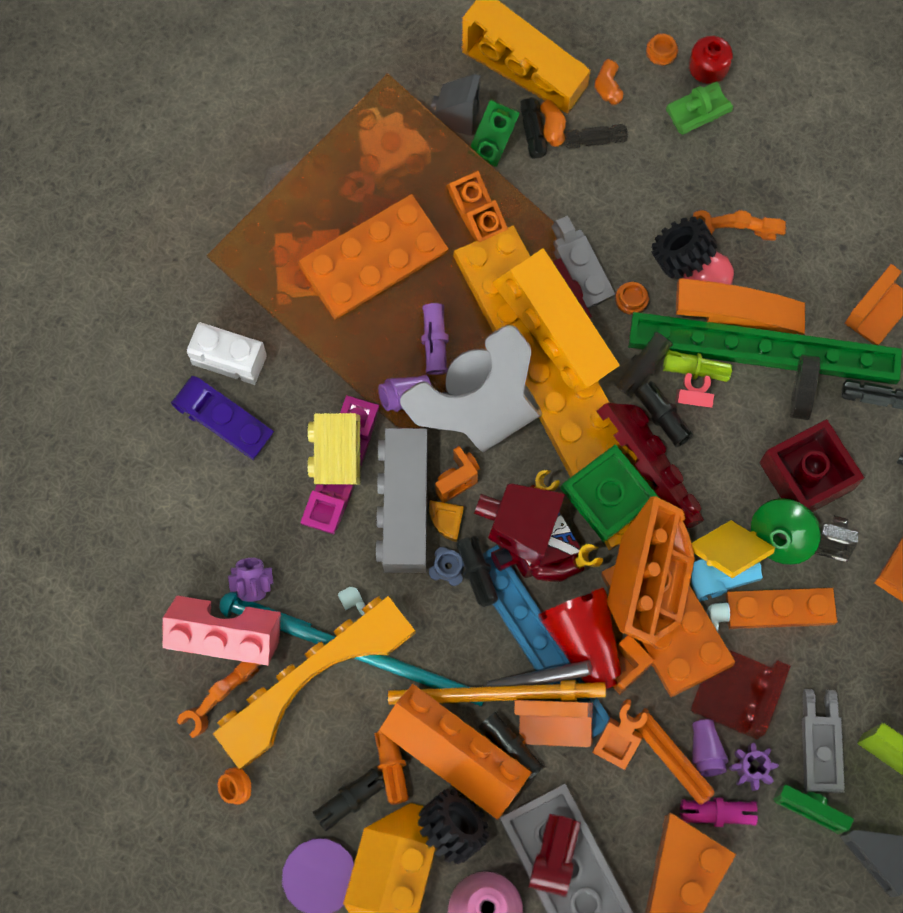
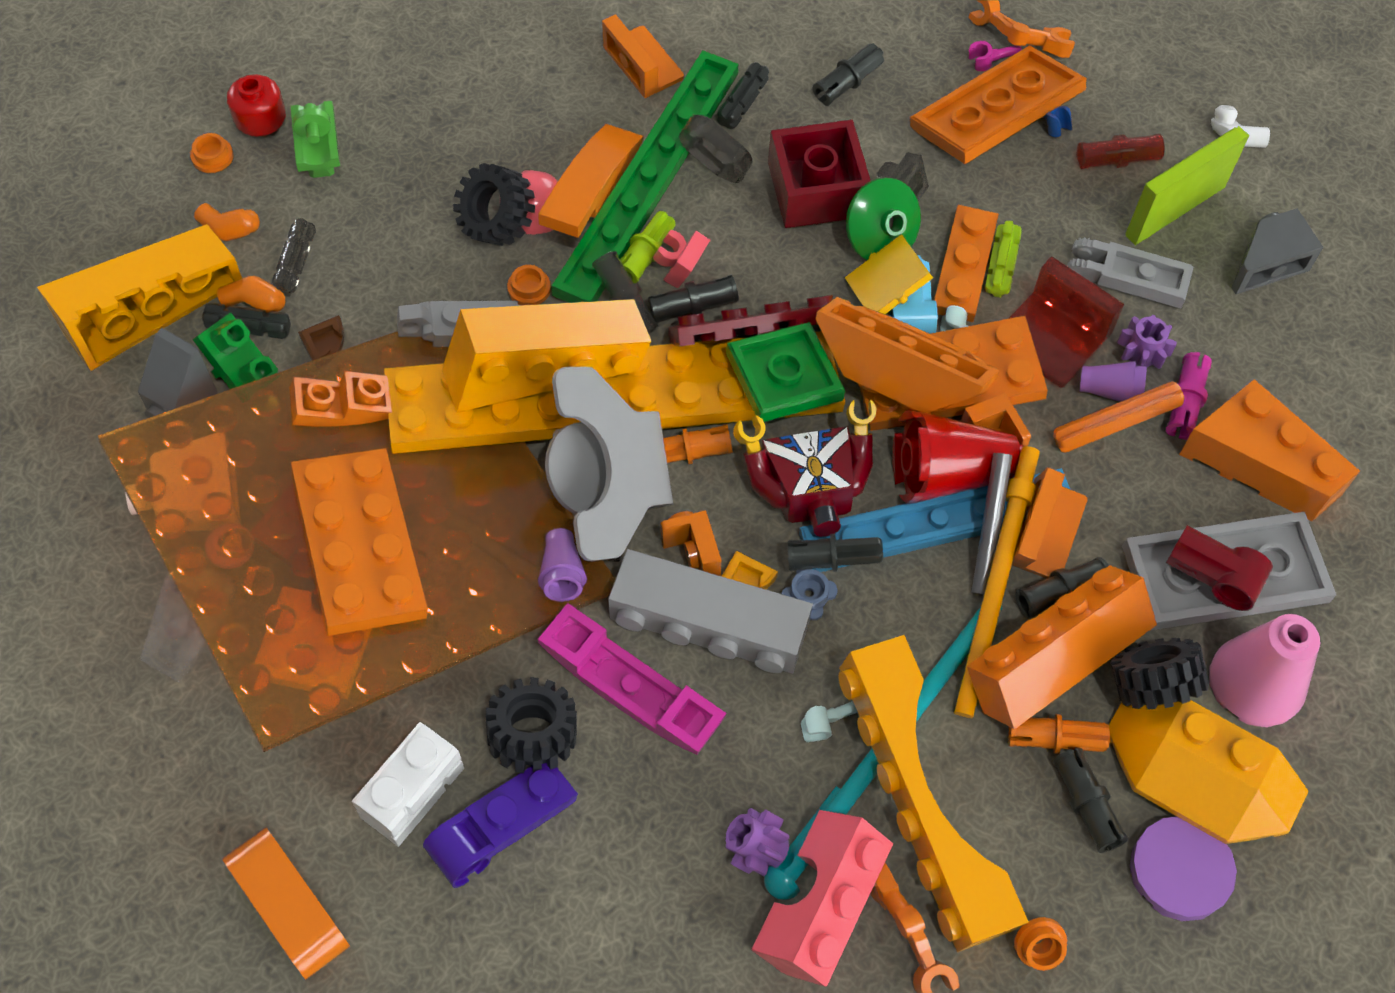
camera: 75 degrees left, 10 degrees down
(133, 311) = (286, 903): none -> orange beam
(291, 394) = (536, 747): none -> black tyre
(335, 449) = (615, 669): light yellow brick -> none
(435, 339) = (471, 496): medium lavender pin -> none
(522, 519) = (797, 467): dark red torso -> none
(536, 181) = (323, 338): none -> reddish brown tile
(537, 450) = (698, 444): none -> orange axle
(620, 739) = (1085, 461): orange plate -> none
(764, 228) = (483, 140): orange piece -> none
(795, 637) = (1003, 259): none -> lime axle
(813, 808) = (1205, 301): green plate -> none

